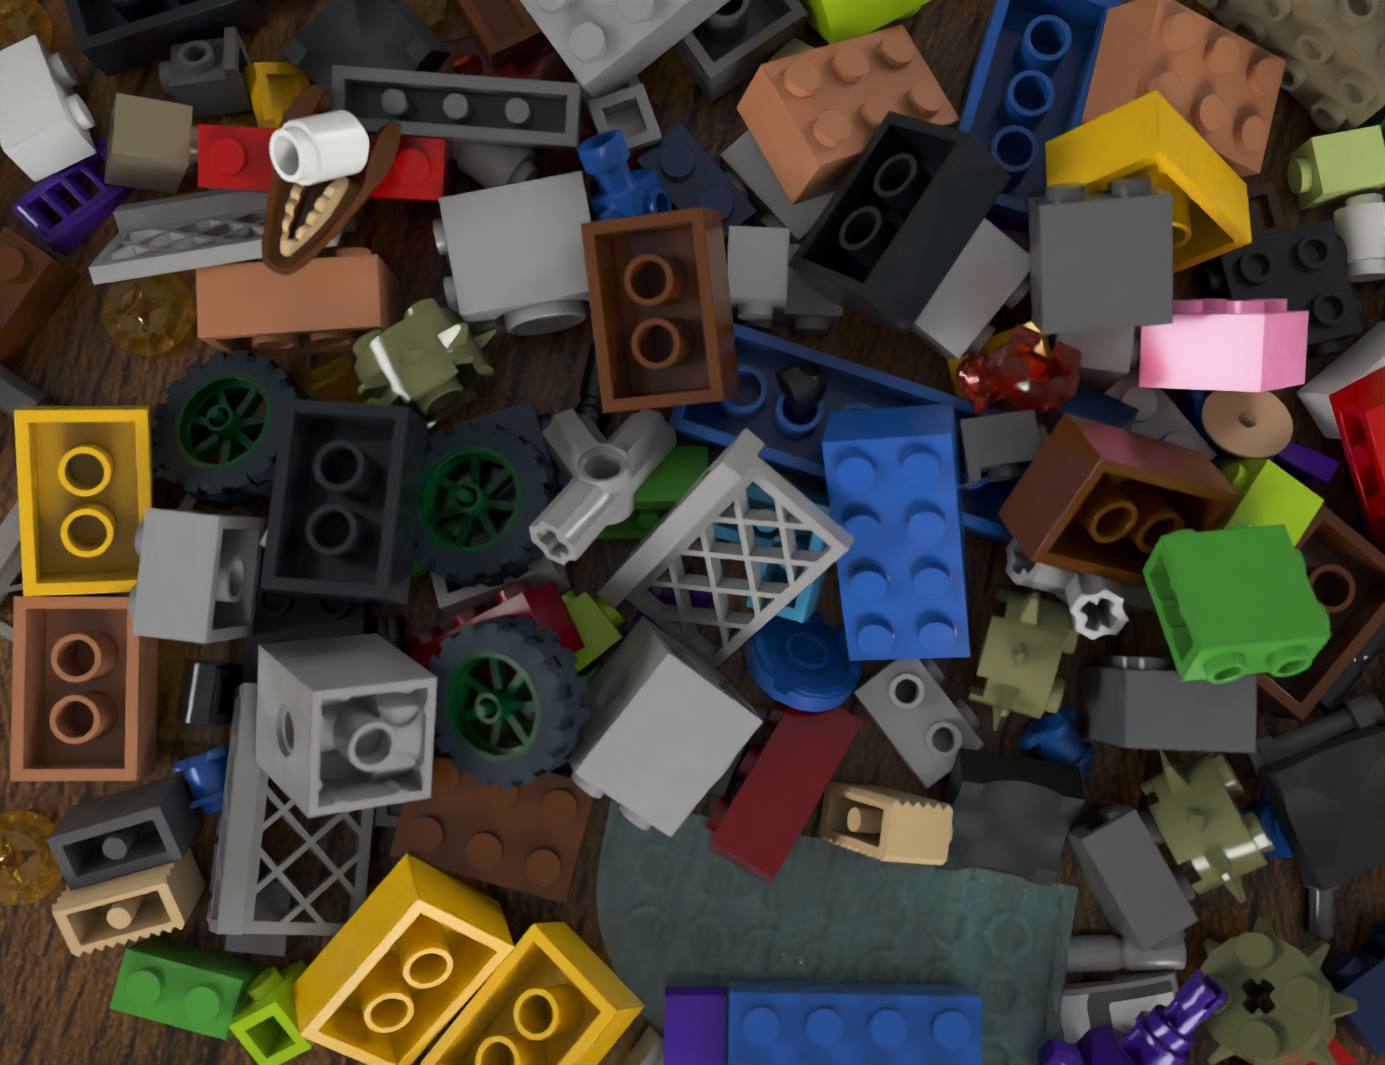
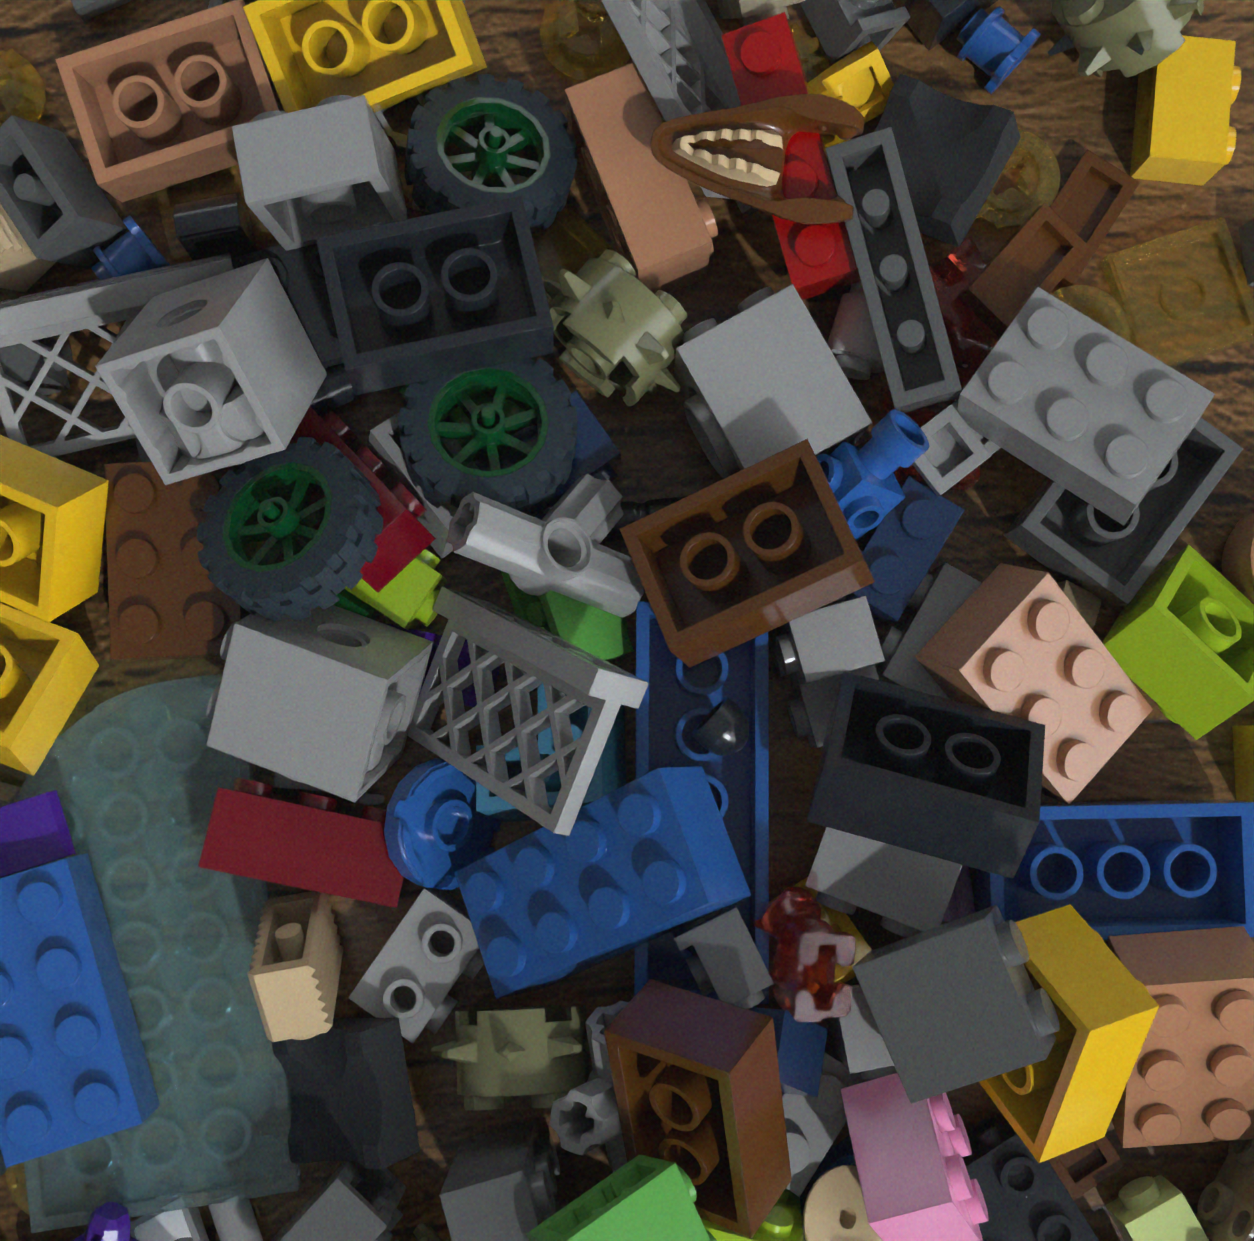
camera: 65 degrees right, 0 degrees up
(319, 148) = (793, 142): white brick -> none
(1057, 739) = (444, 1122): blue brick -> none

